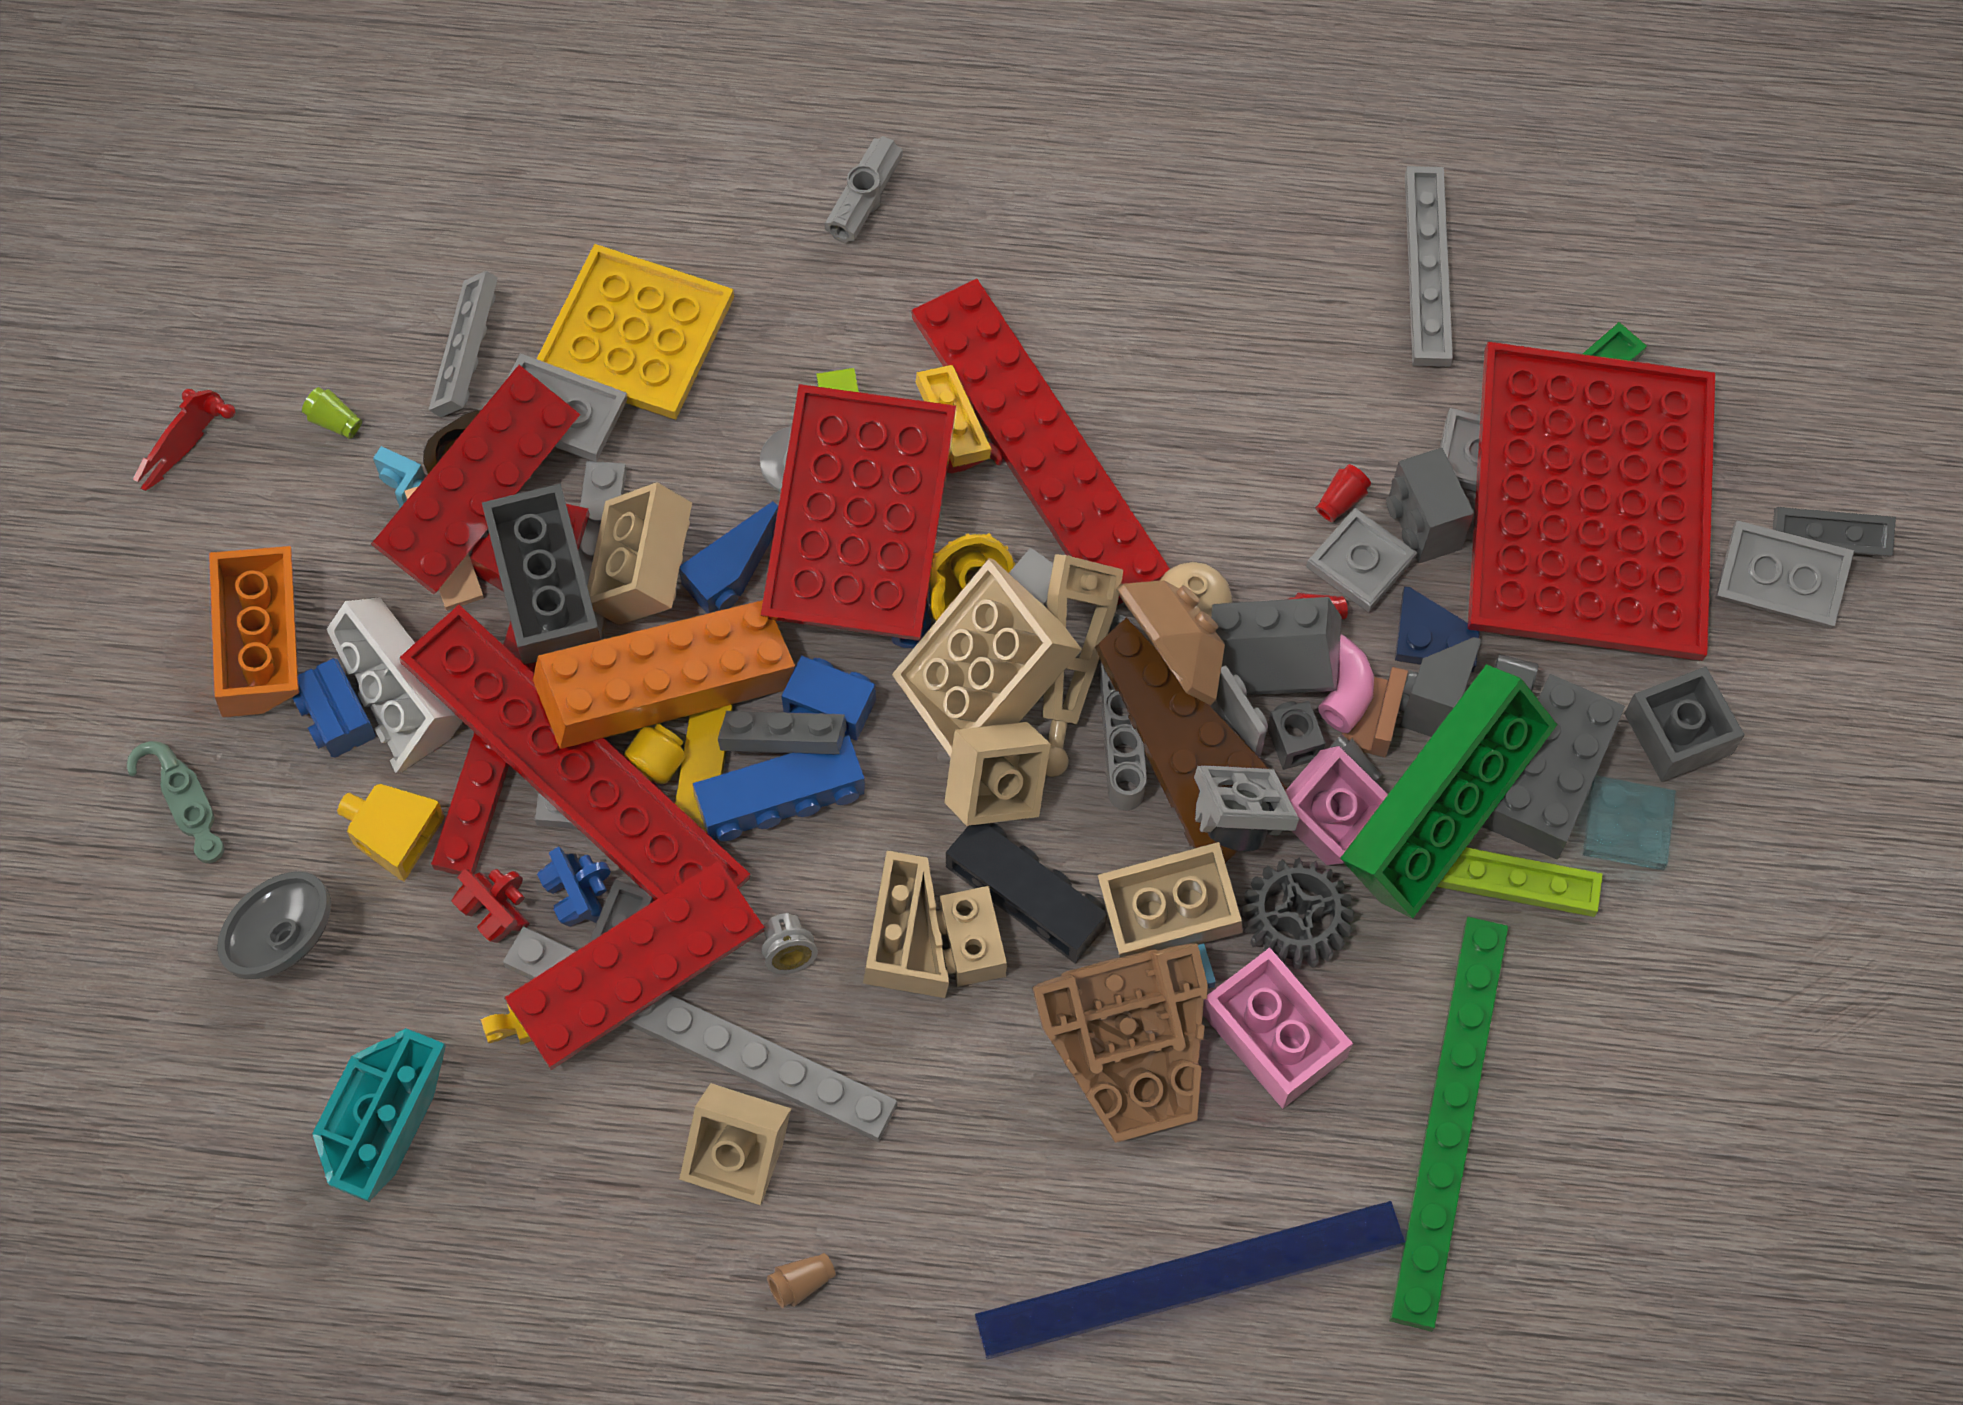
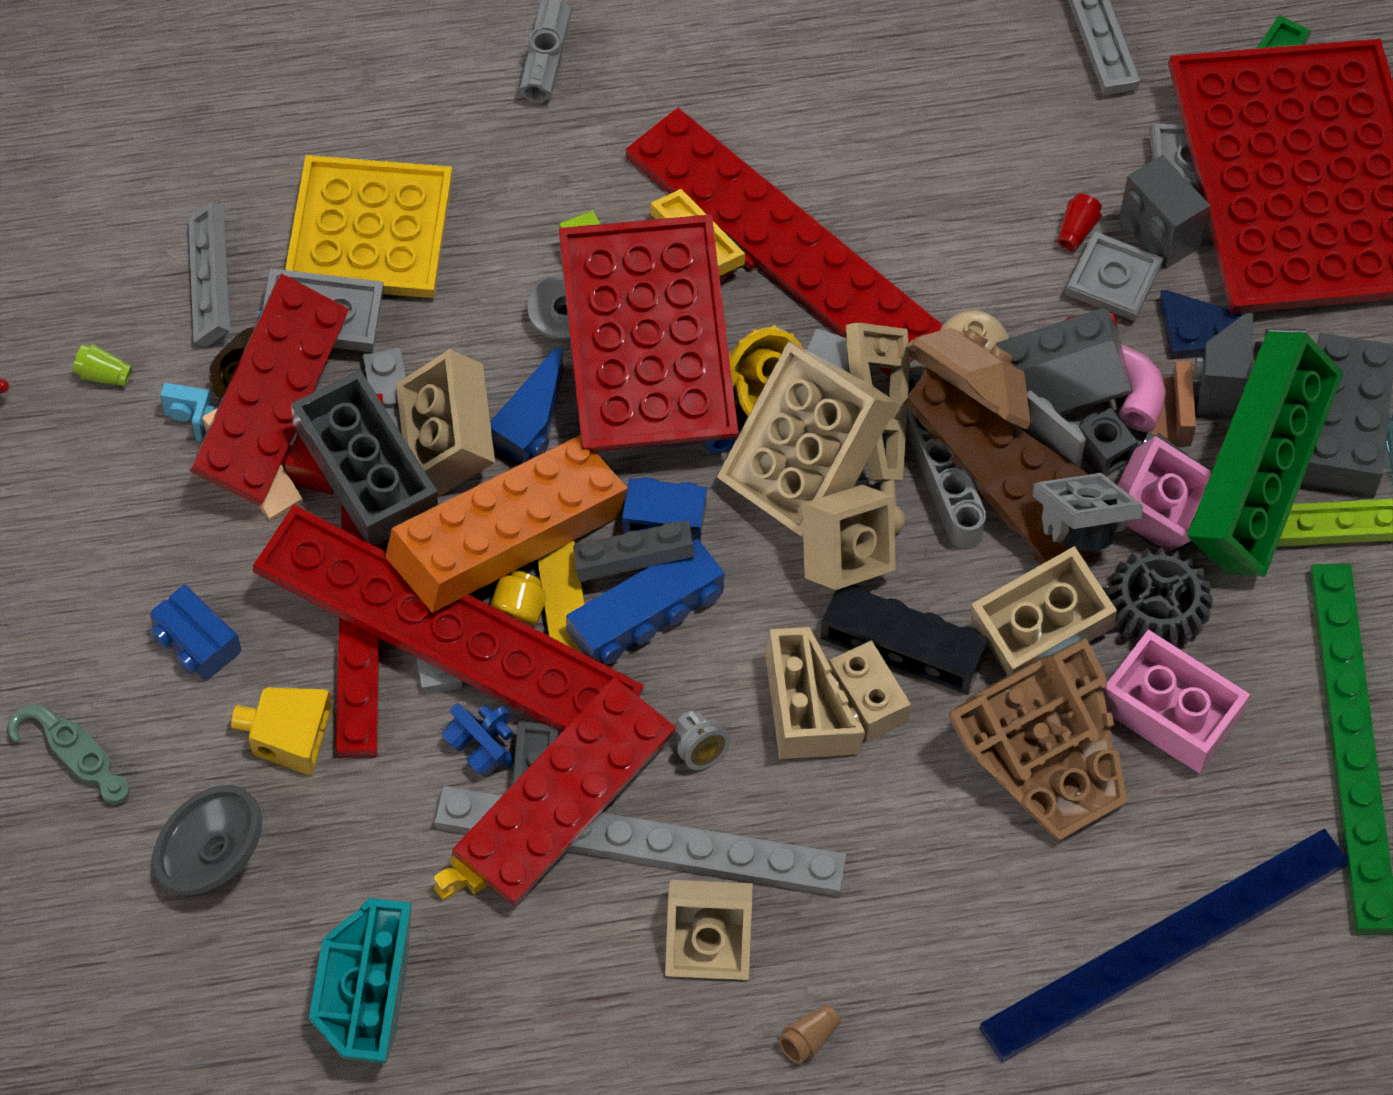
camera: 15 degrees left, 5 degrees down
(253, 629) = (97, 577): orange slope -> none
(405, 709) = (264, 615): white wedge -> none
(480, 891) = (388, 766): red hips -> none

